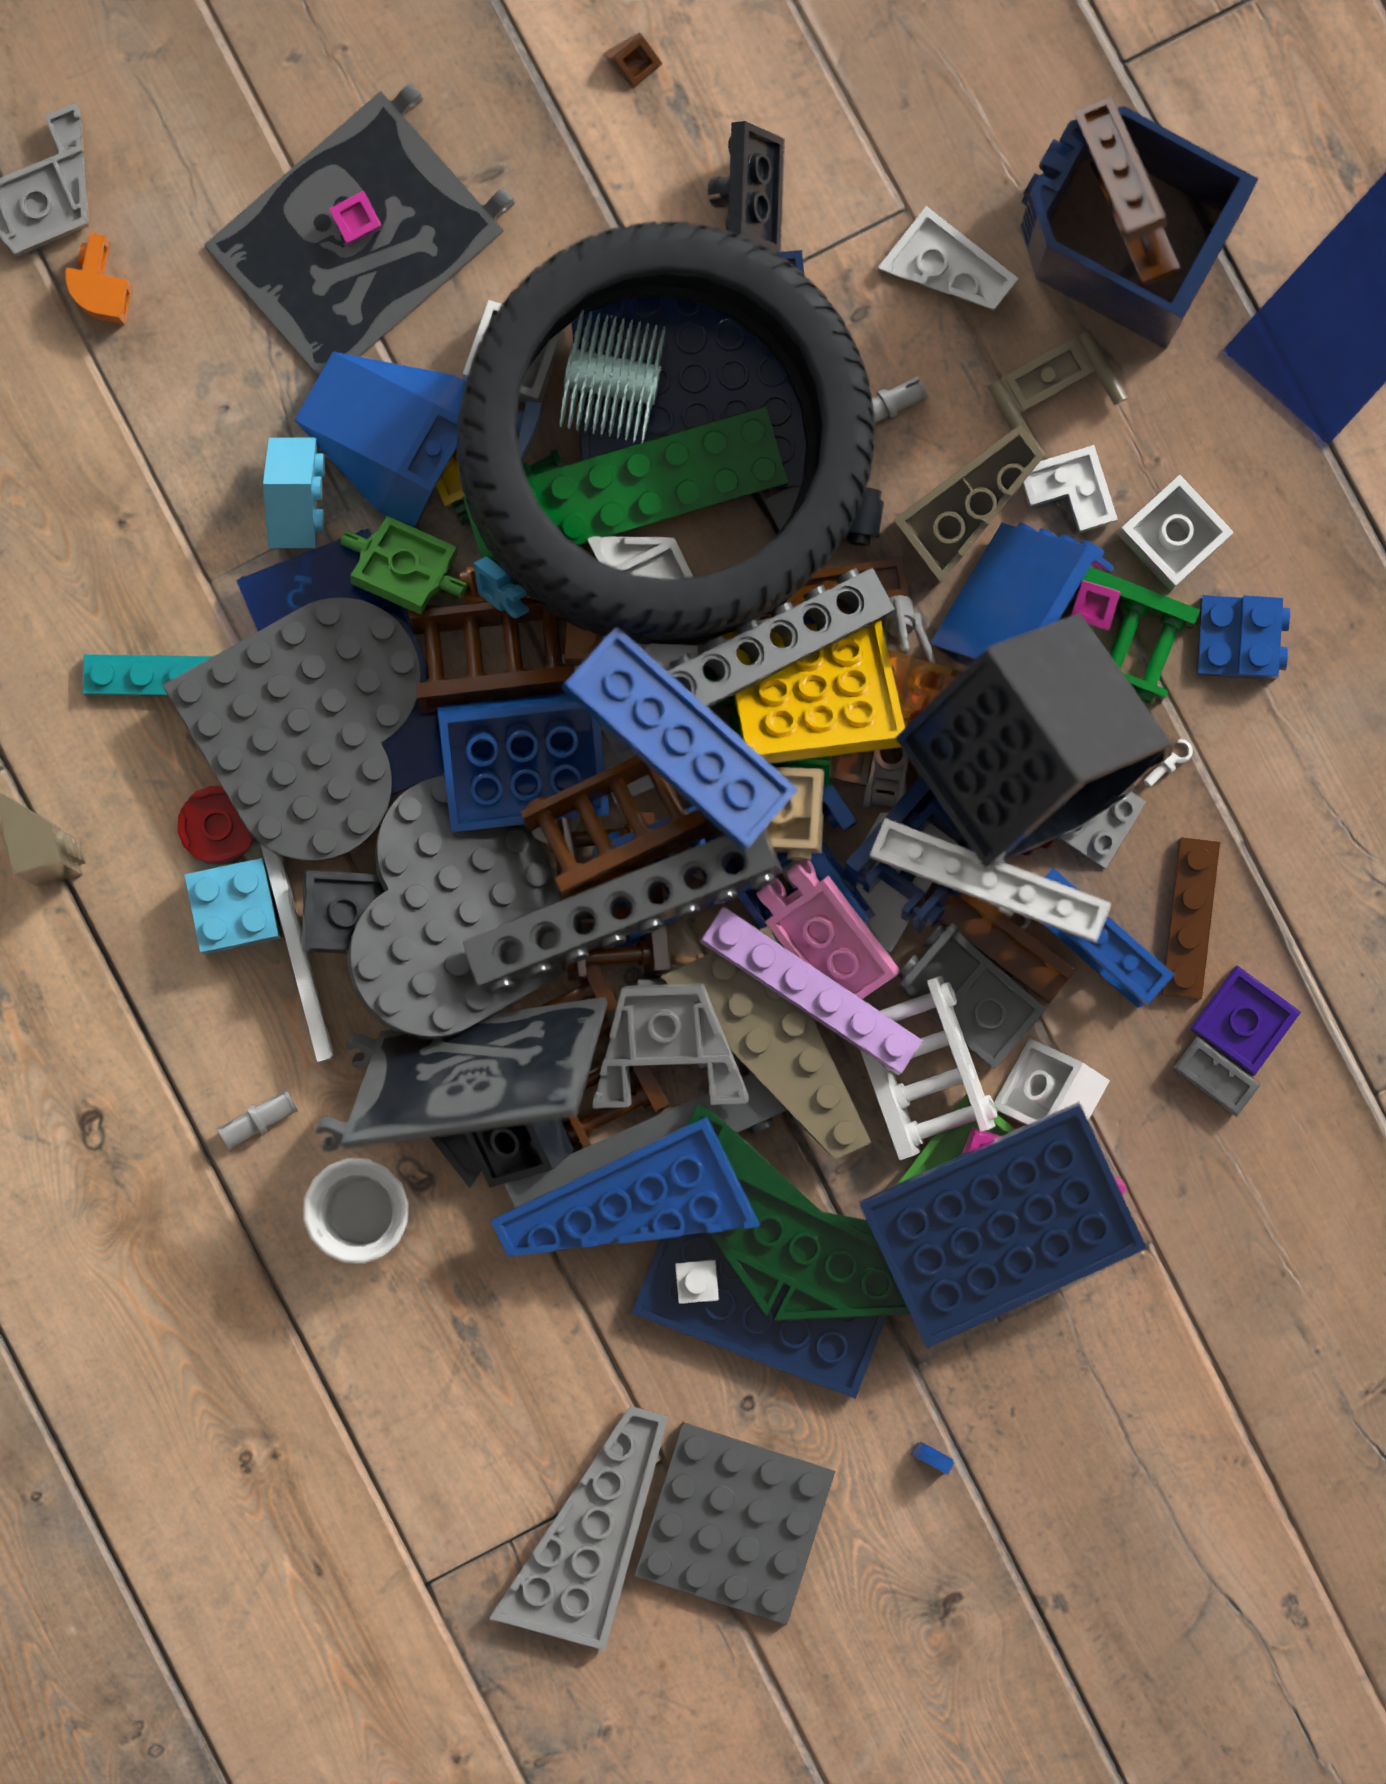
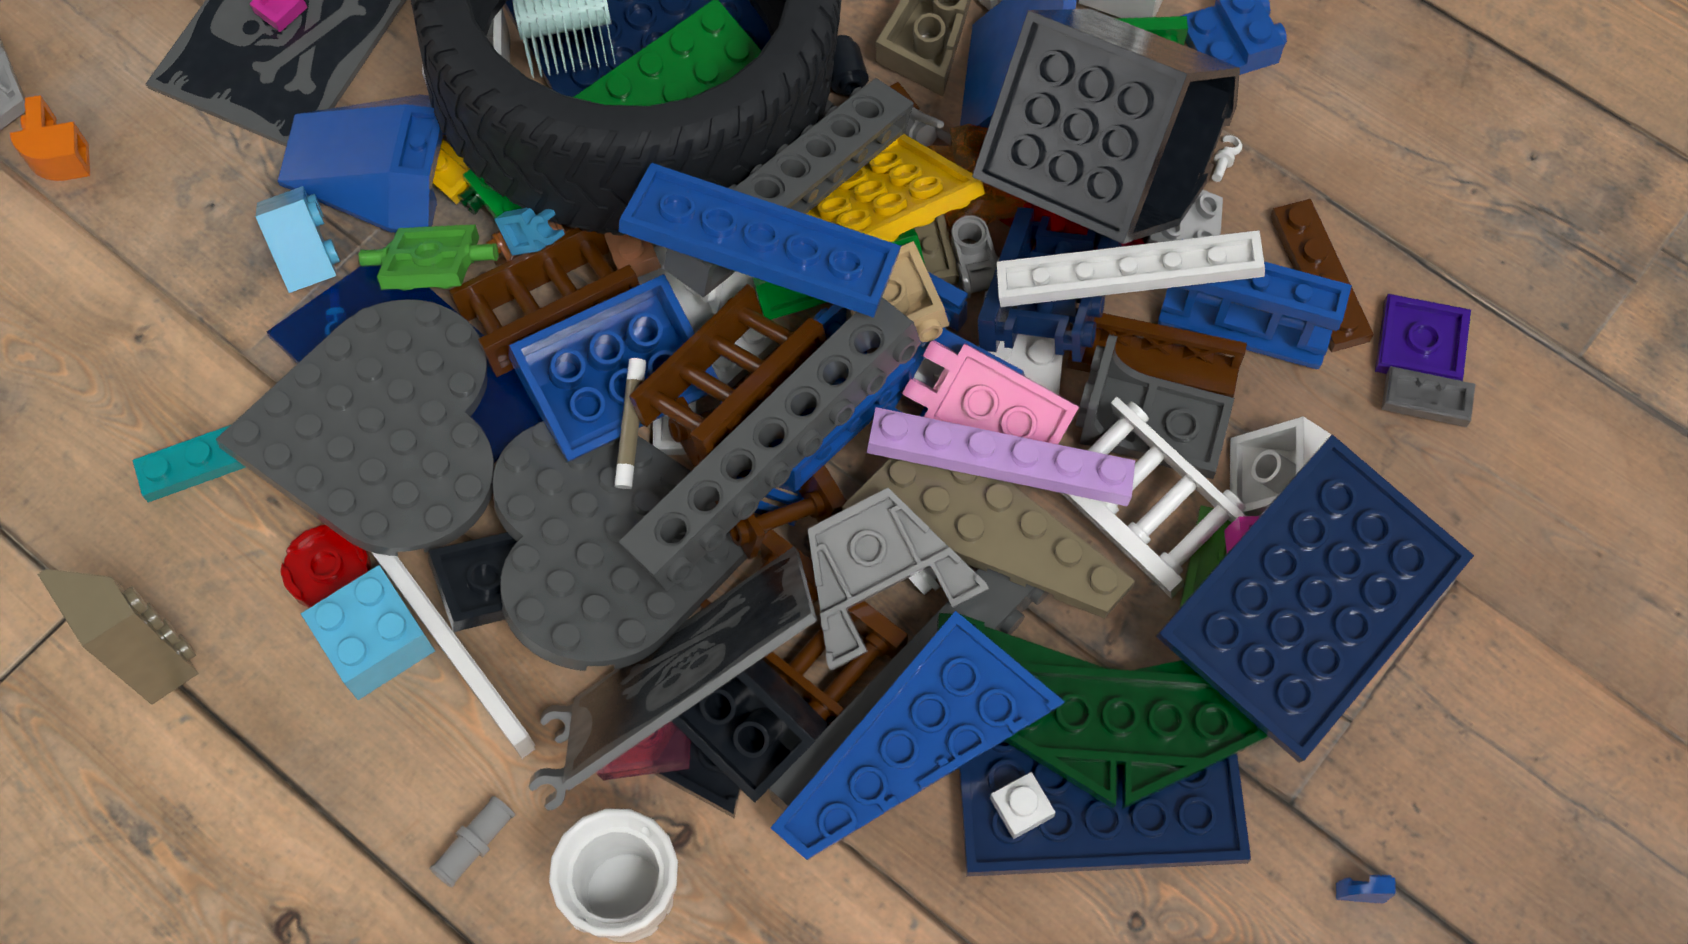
camera: 25 degrees left, 20 degrees down
(514, 823) = (629, 427): none -> dark tan bar

